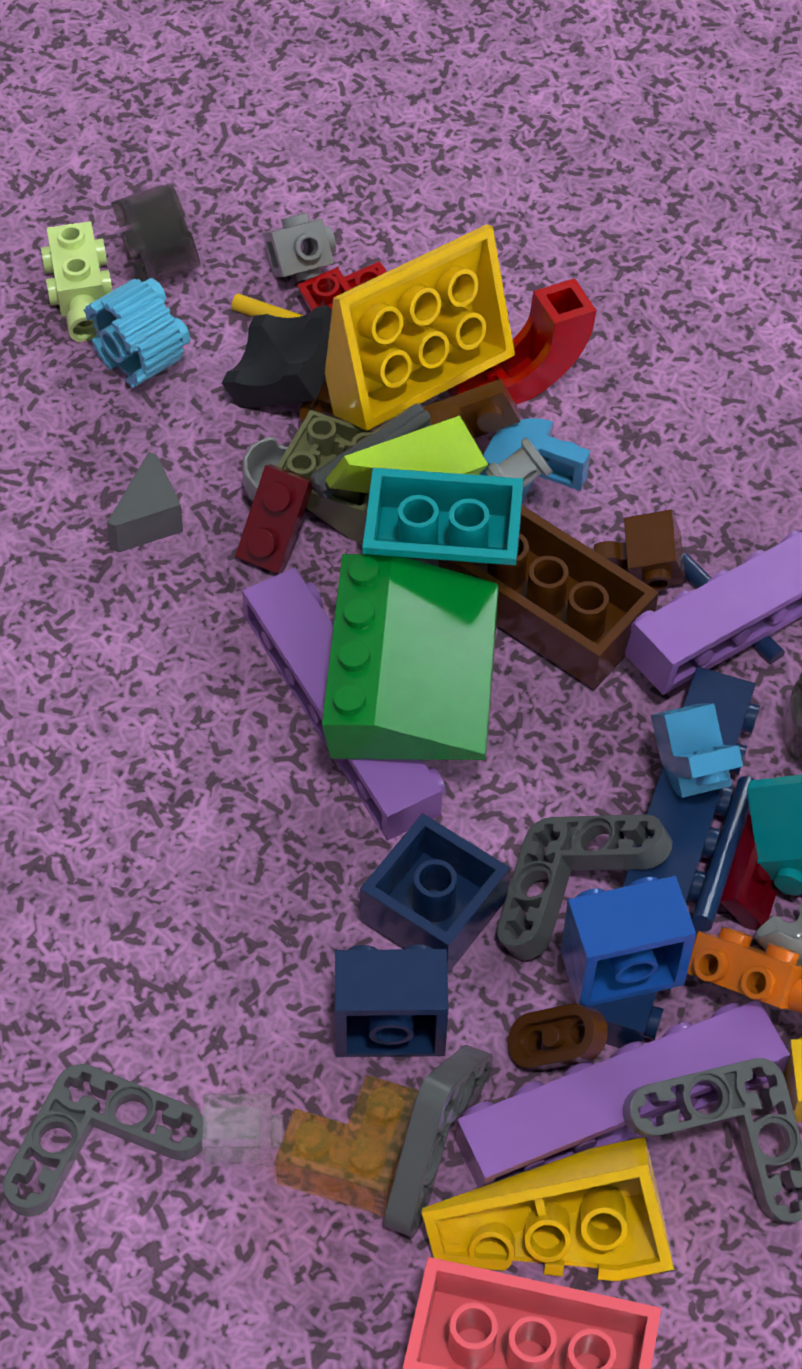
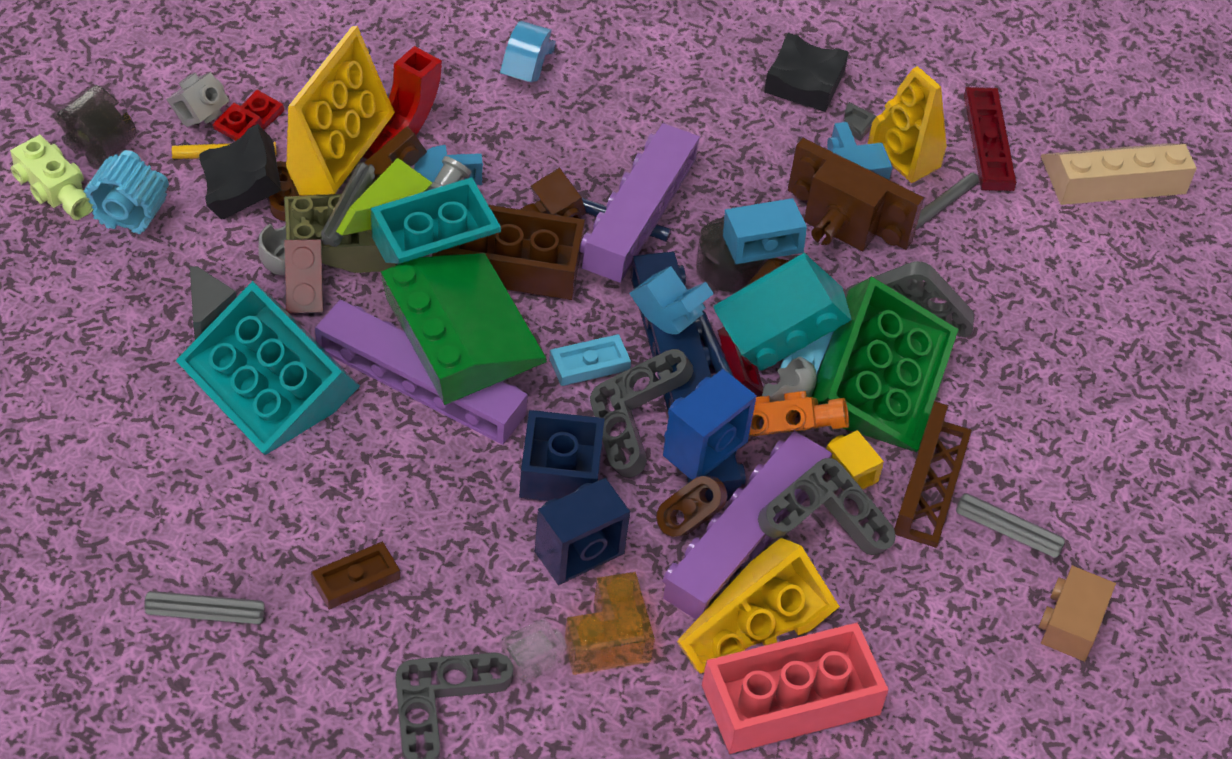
camera: 35 degrees left, 5 degrees down
(97, 925) = (355, 575): none -> reddish brown plate
(163, 619) = (266, 370): none -> teal slope
(440, 1101) = (656, 572): dark grey beam -> none
(562, 779) = (589, 360): none -> medium azure plate
(739, 338) = (527, 51): none -> dark azure brick

